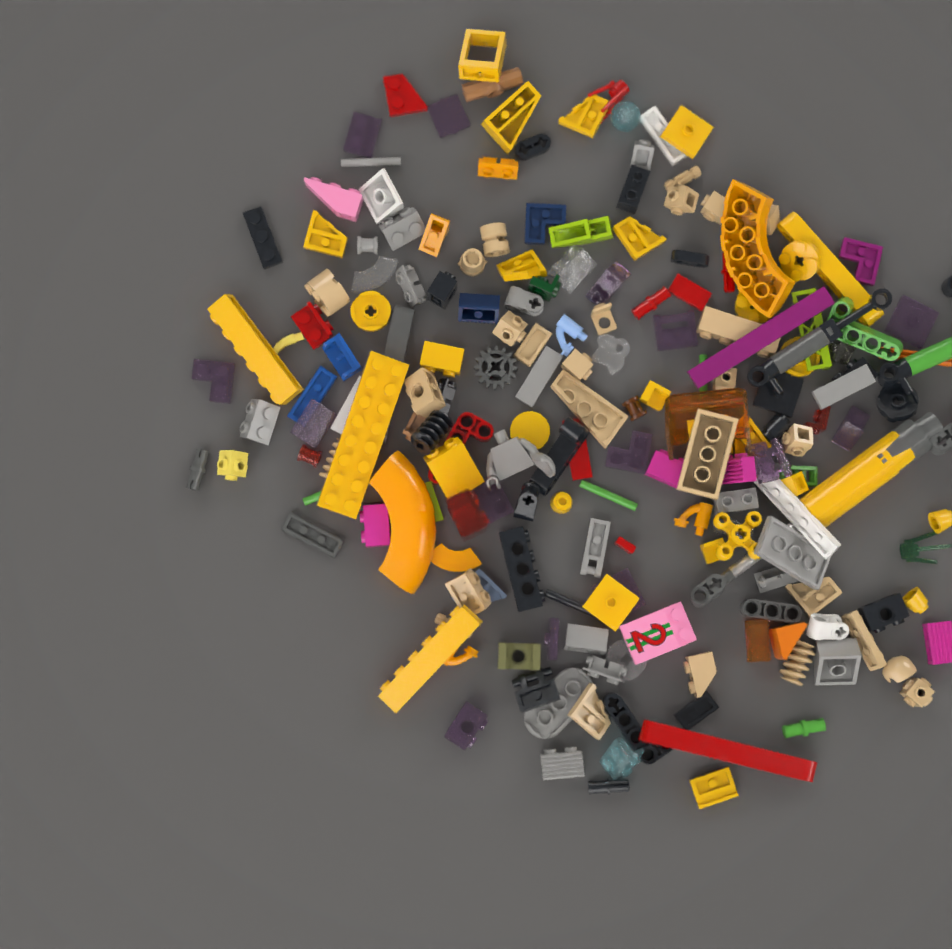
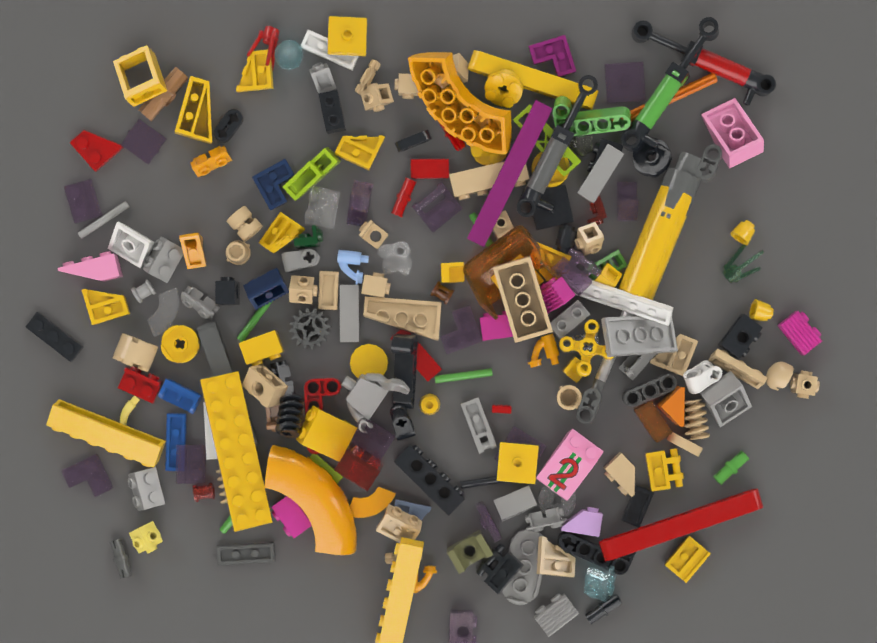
camera: 25 degrees left, 5 degrees up
(449, 331) = (252, 322): none -> bright green bar
(639, 695) = (584, 522): none -> lavender slope
(694, 571) = (569, 397): none -> tan piece
(735, 689) = (658, 469): none -> yellow plate
(774, 680) = (684, 444): none -> tan beam

